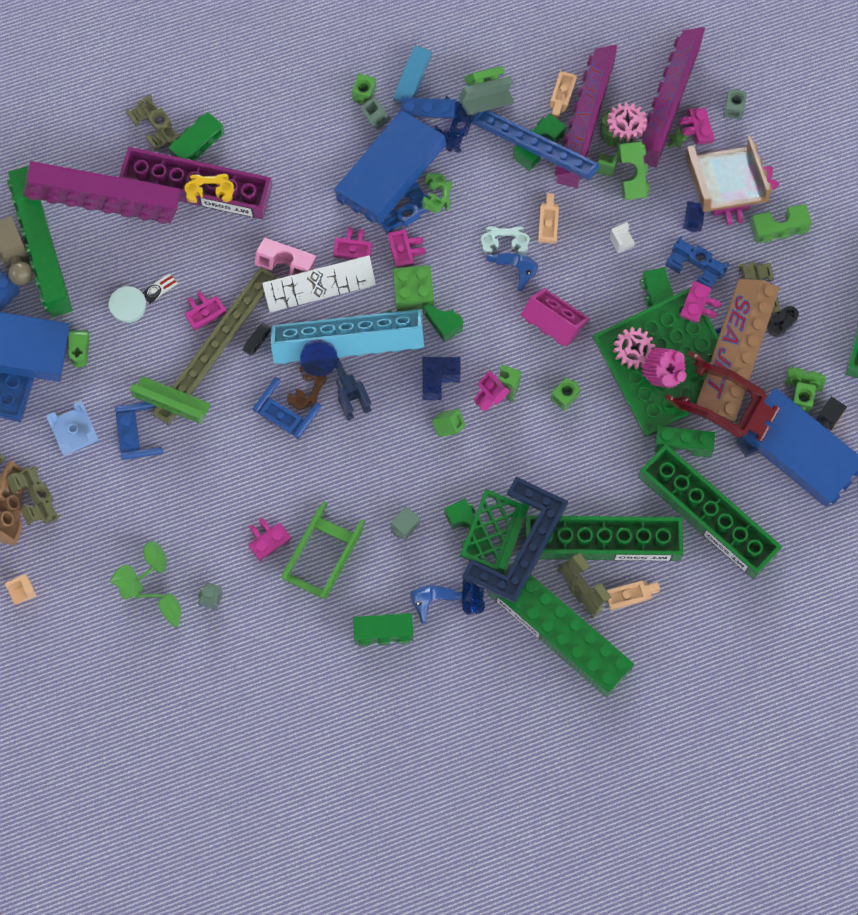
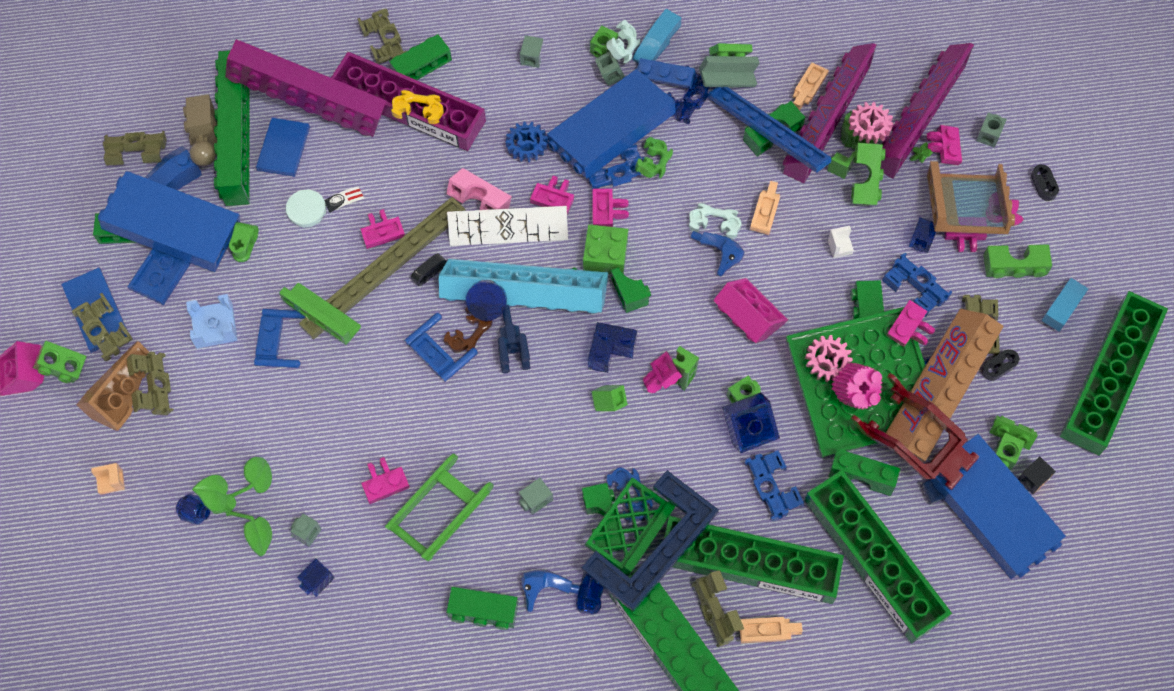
camera: 15 degrees right, 5 degrees down
(89, 250) = (283, 147): none -> blue tile
(105, 599) = (192, 509): none -> clear blue head
(230, 635) = (315, 578): none -> clear blue brick
(298, 110) = (531, 51): none -> sand green panel
(315, 198) = (526, 141): none -> blue gear
(378, 92) = (617, 46): none -> light aqua helmet
(475, 491) = (620, 478): none -> blue helmet
(578, 419) = (751, 422): none -> clear blue brick
(614, 484) = (776, 503): none -> blue piece
(794, 143) = (1047, 182): none -> black beam
(829, 255) = (1065, 304): none -> dark azure slope

